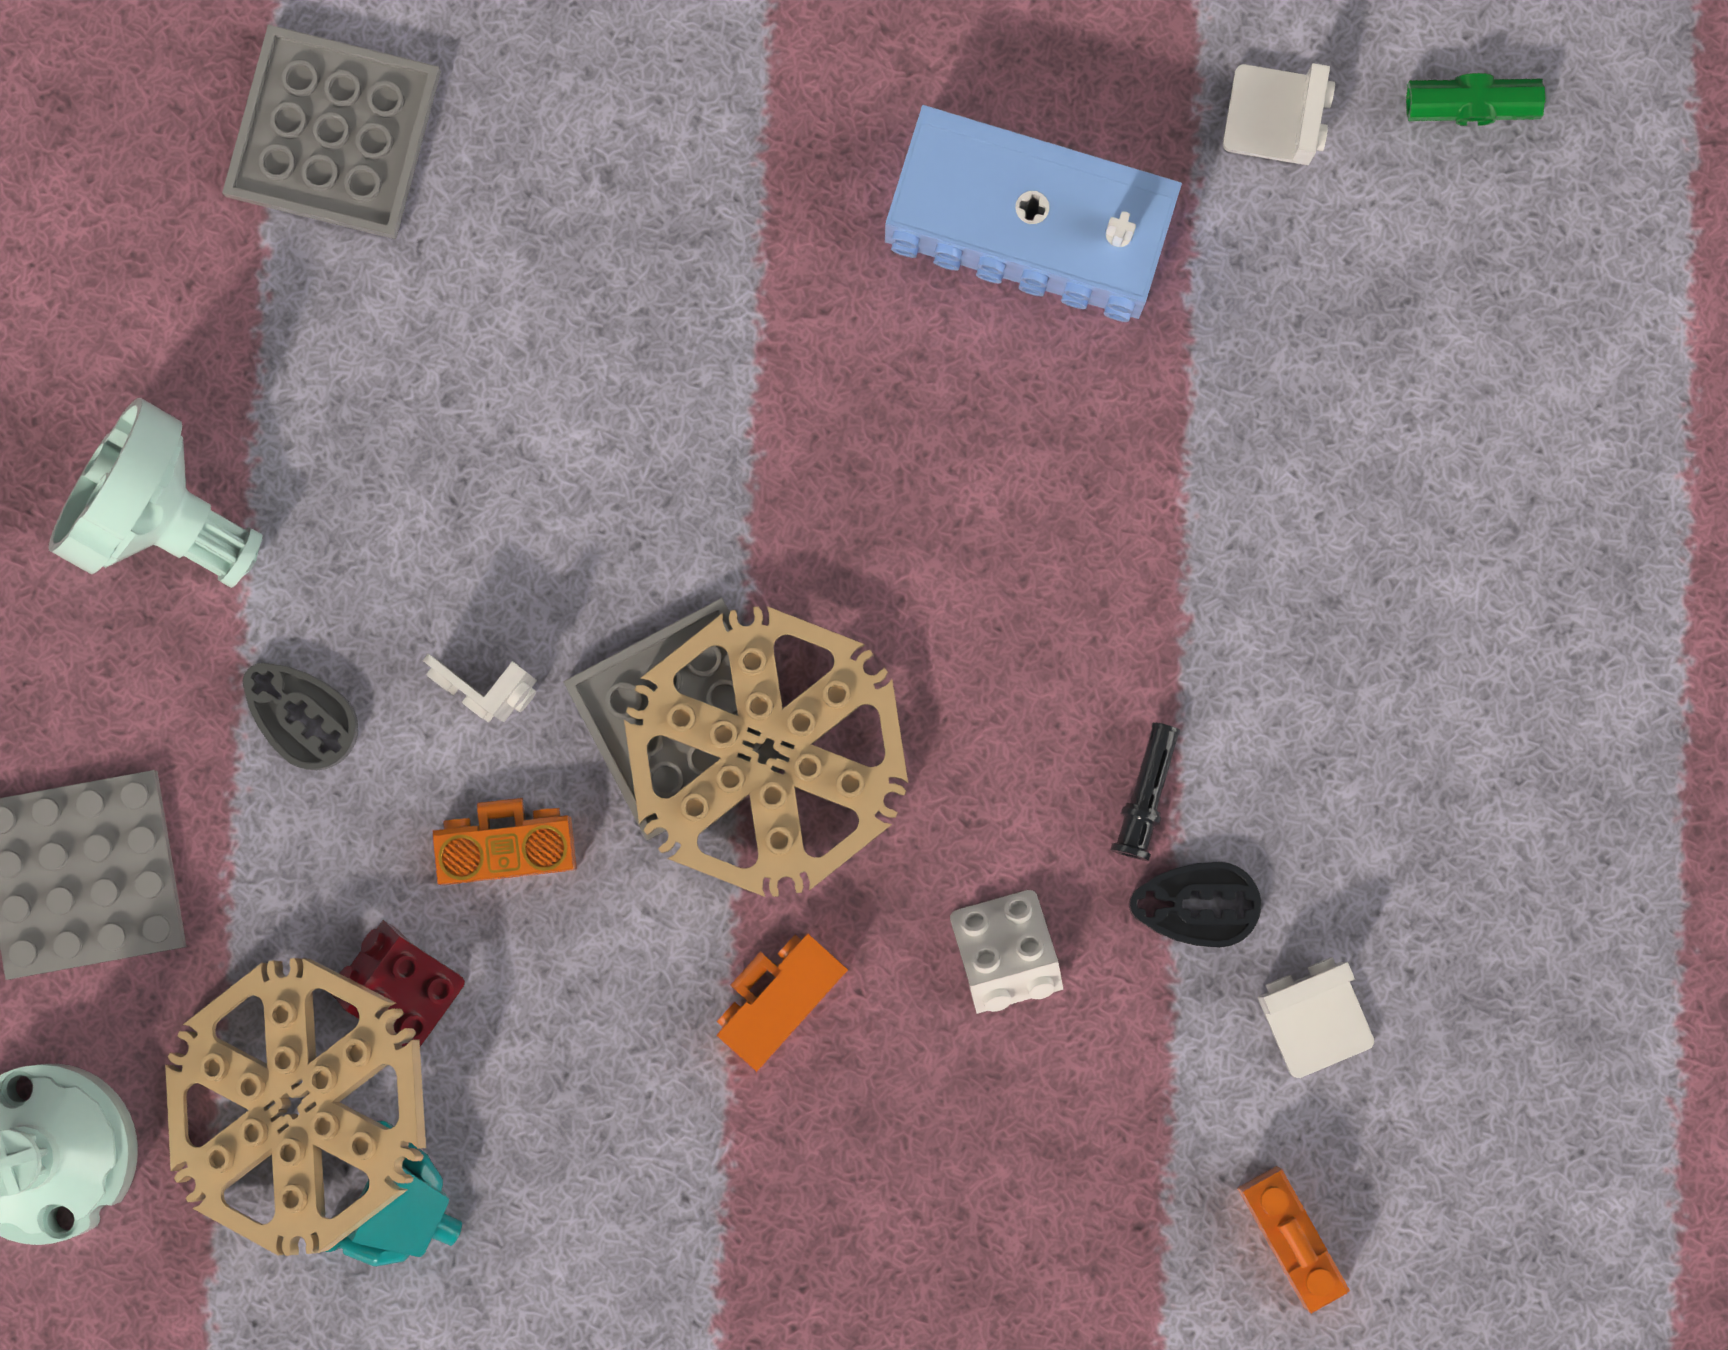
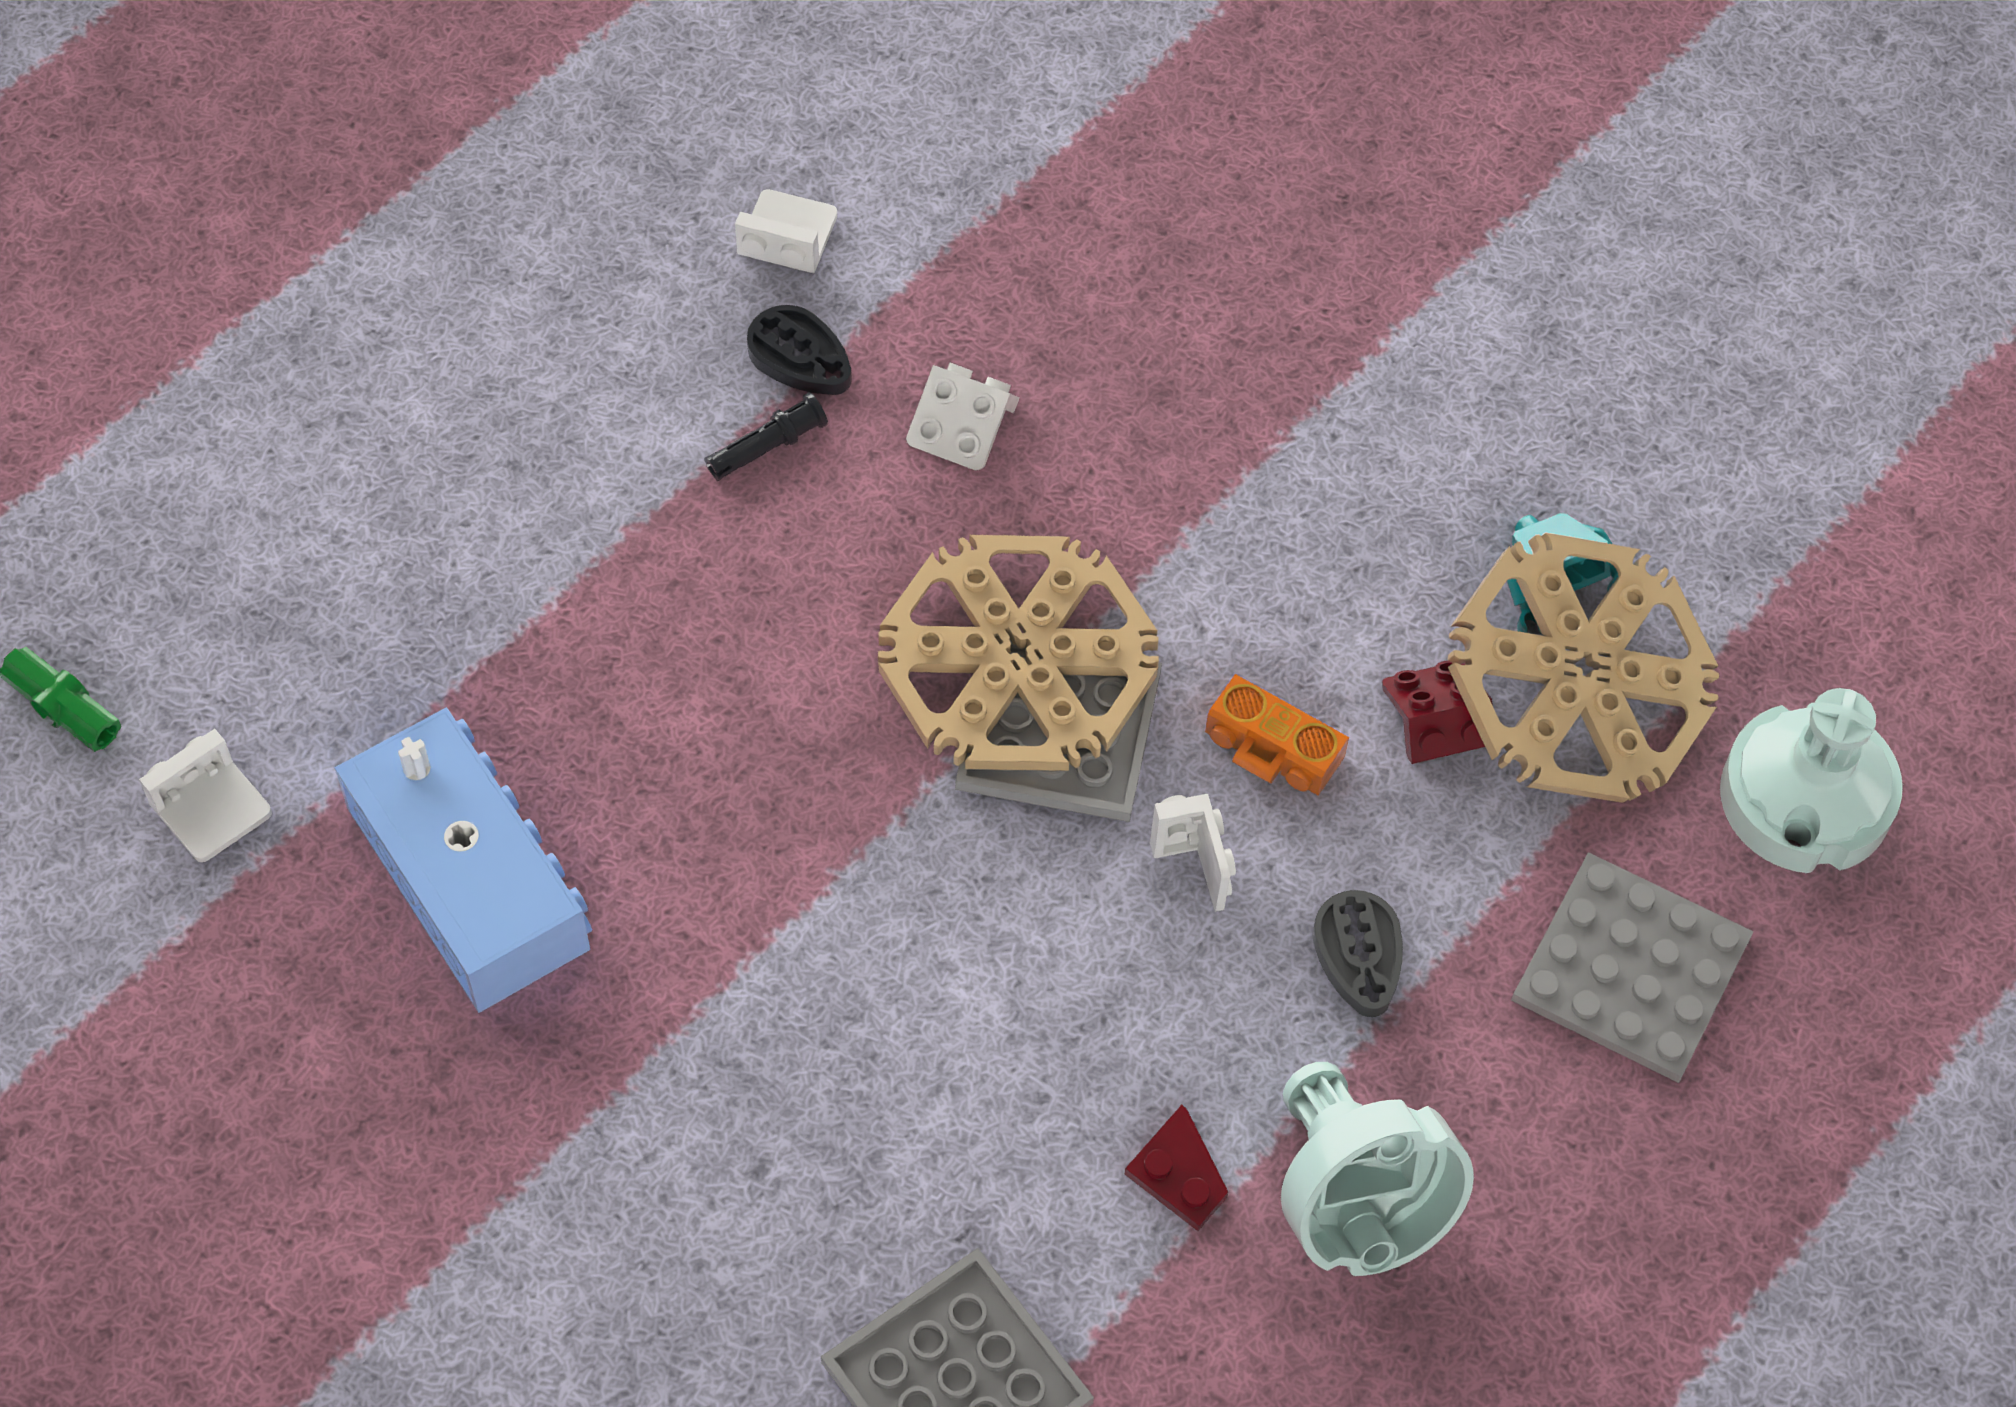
camera: 145 degrees left, 25 degrees down
(299, 421) = (1180, 1171): none -> dark red wing
(768, 1020) = (1154, 495): orange piece -> none
(1293, 1239) = (930, 120): orange piece -> none

